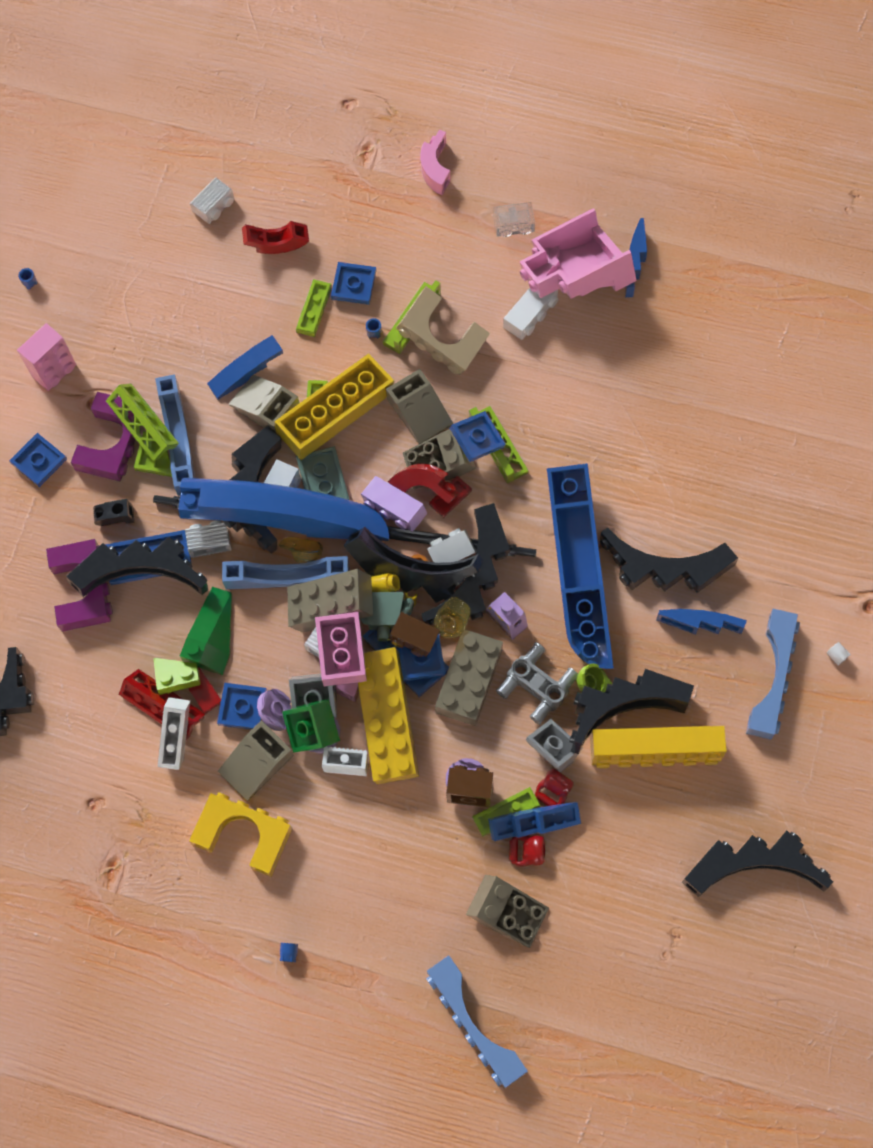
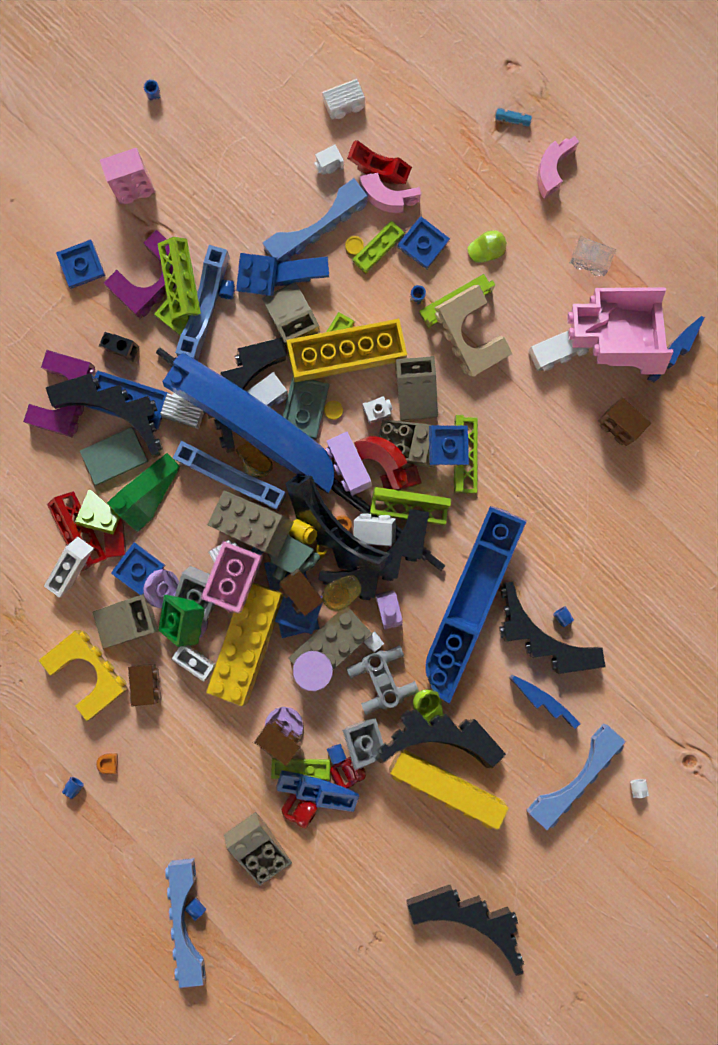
camera: 25 degrees right, 15 degrees up
(161, 616) = (113, 456): none -> sand green tile
(191, 413) = (227, 289): none -> blue hose
(213, 384) = (256, 274): none -> blue plate
(225, 347) = (286, 244): none -> medium blue arch
(227, 257) = (328, 160): none -> white brick
(290, 317) = (354, 245): none -> yellow piece
(297, 263) = (385, 198): none -> bright pink arch
(306, 811) = (144, 685): none -> reddish brown brick
(310, 910) = (107, 763): none -> orange tile
(351, 468) = (333, 410): none -> yellow piece
(375, 142) = (513, 117): none -> dark azure axle
(392, 451) = (373, 415): none -> white brick
(414, 258) = (487, 246): none -> lime piece
(465, 508) = (412, 499): none -> lime fence
(465, 702) = (312, 670): none -> lavender tile
(478, 1004) = (195, 909): none -> blue hose
(508, 653) = (373, 642): none -> white hose
(532, 776) = (336, 753): none -> blue hose
(625, 339) = (624, 422): none -> reddish brown brick
(673, 537) = (563, 616): none -> blue hose

